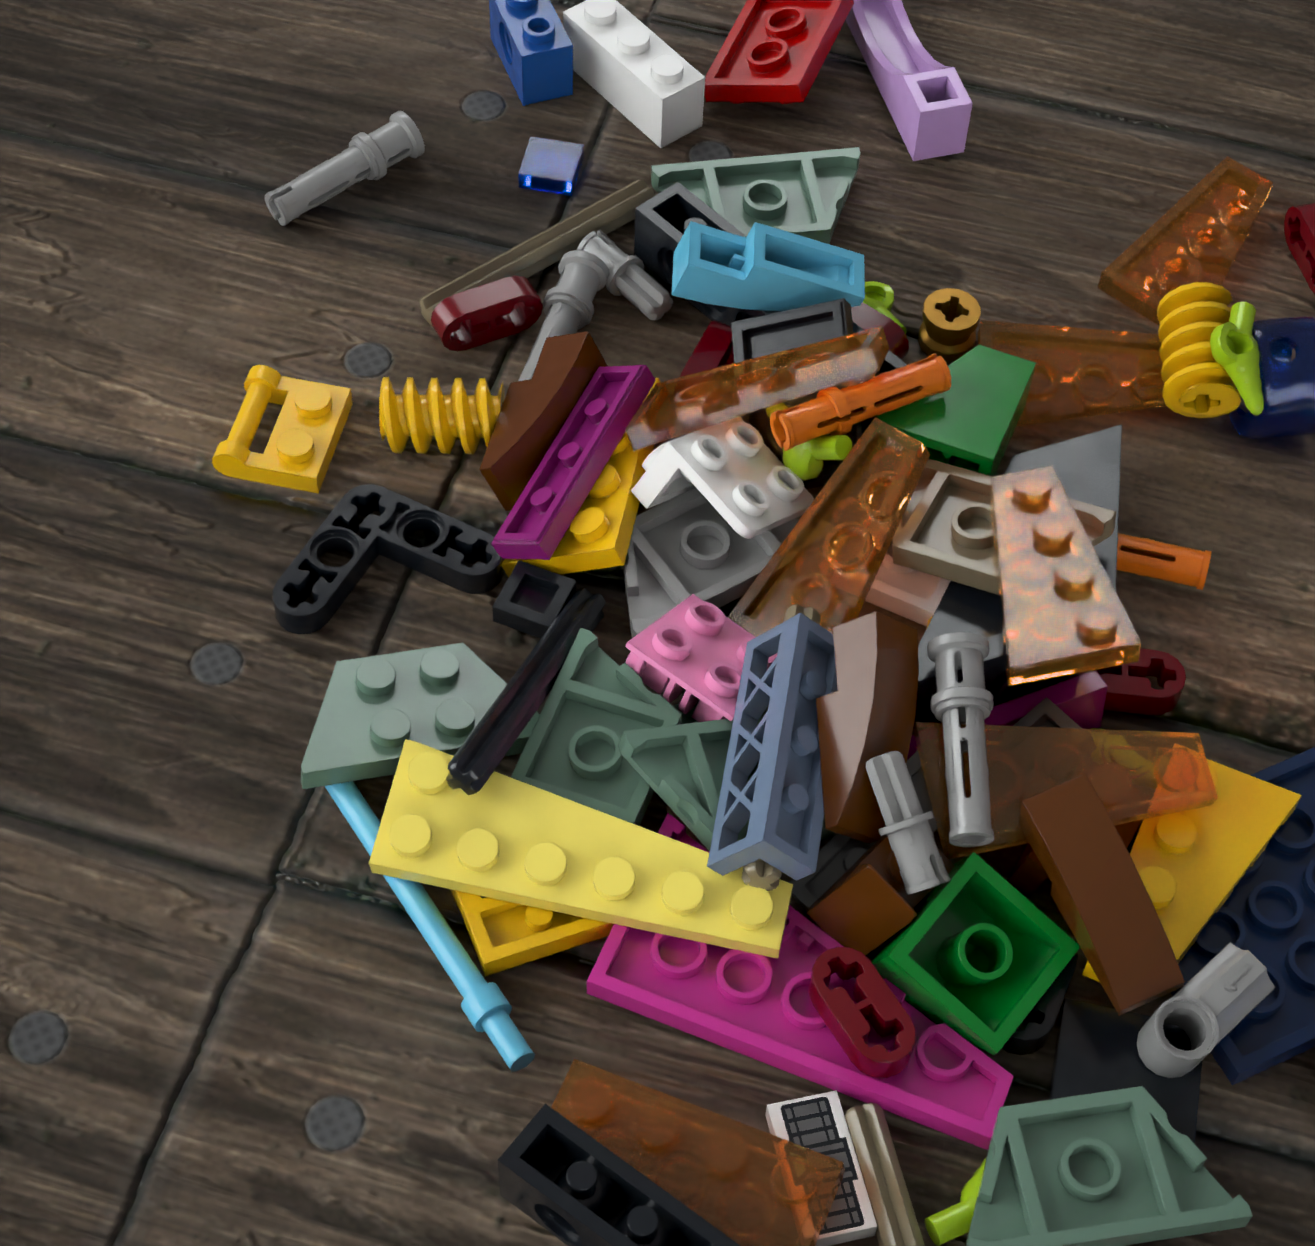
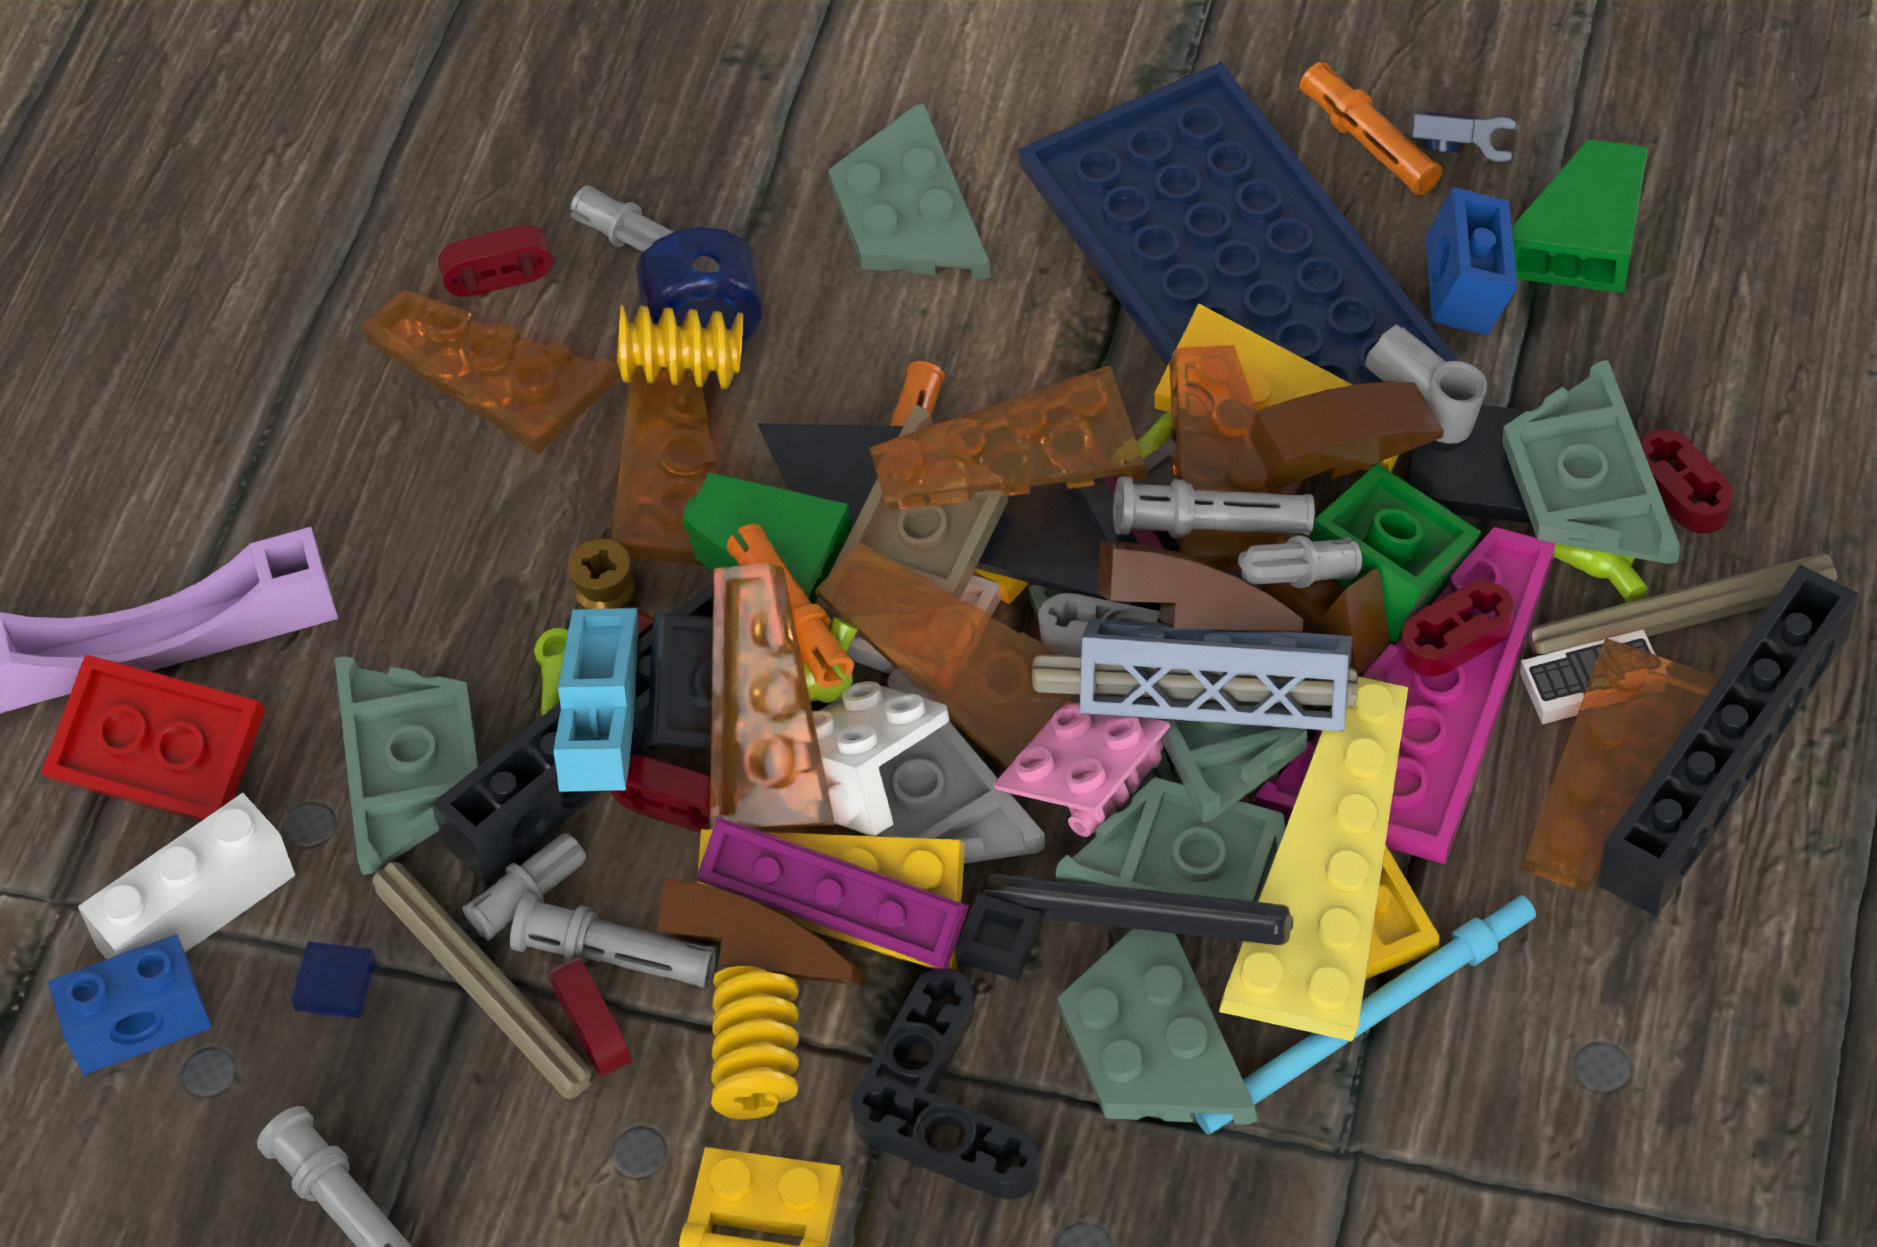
camera: 85 degrees left, 0 degrees up
(1239, 354) = (709, 296): lime animal -> none

